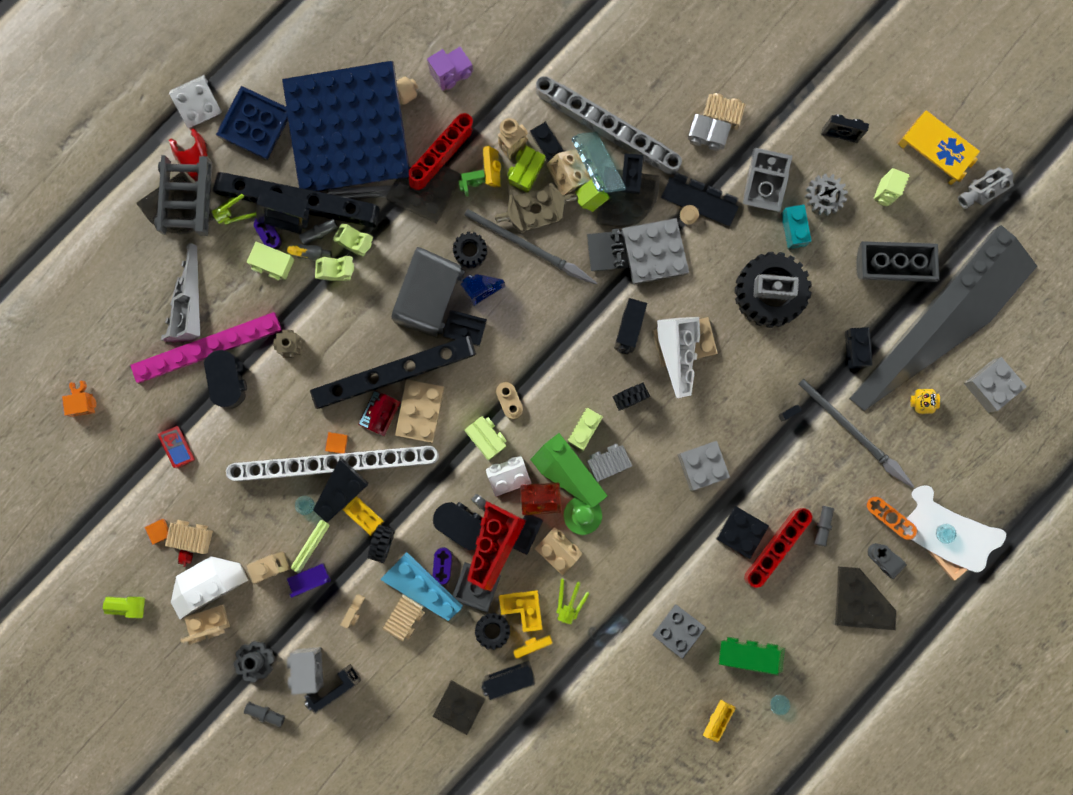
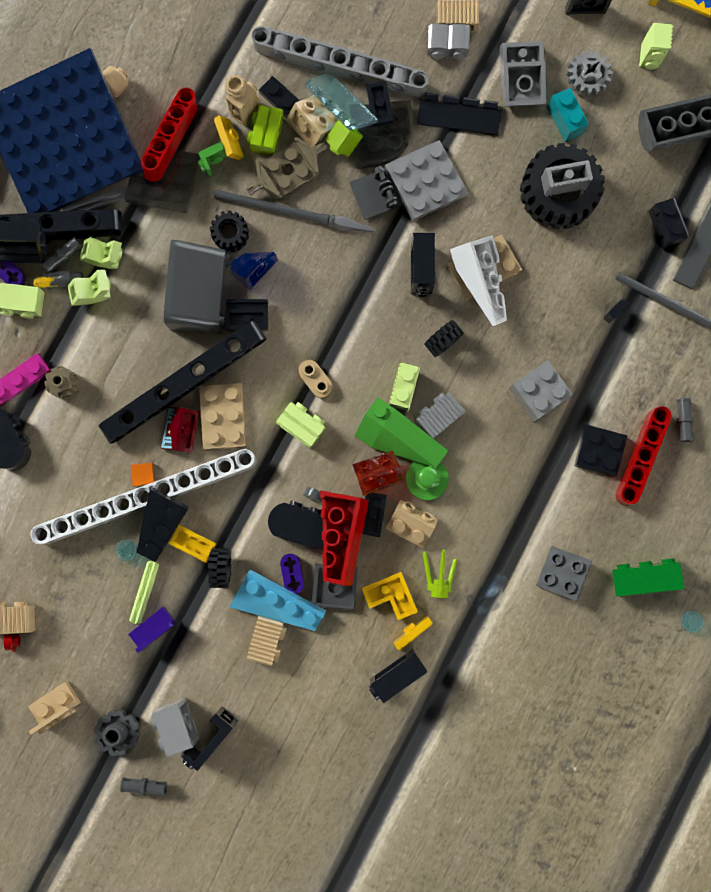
camera: 15 degrees left, 0 degrees up
(205, 584) = (41, 664): white wedge -> none
(267, 567) = (103, 627): tan torso -> none
(351, 616) = (209, 654): tan plate -> none
(449, 68) = (154, 45): medium lavender brick -> none
(459, 707) = (351, 720): clear smoke plate -> none
(492, 619) = (374, 638): black tyre -> none
(508, 476) = (336, 458): white bracket -> none
(689, 214) = (451, 132): tan plate -> none
(719, 721) = (633, 657): yellow plate -> none

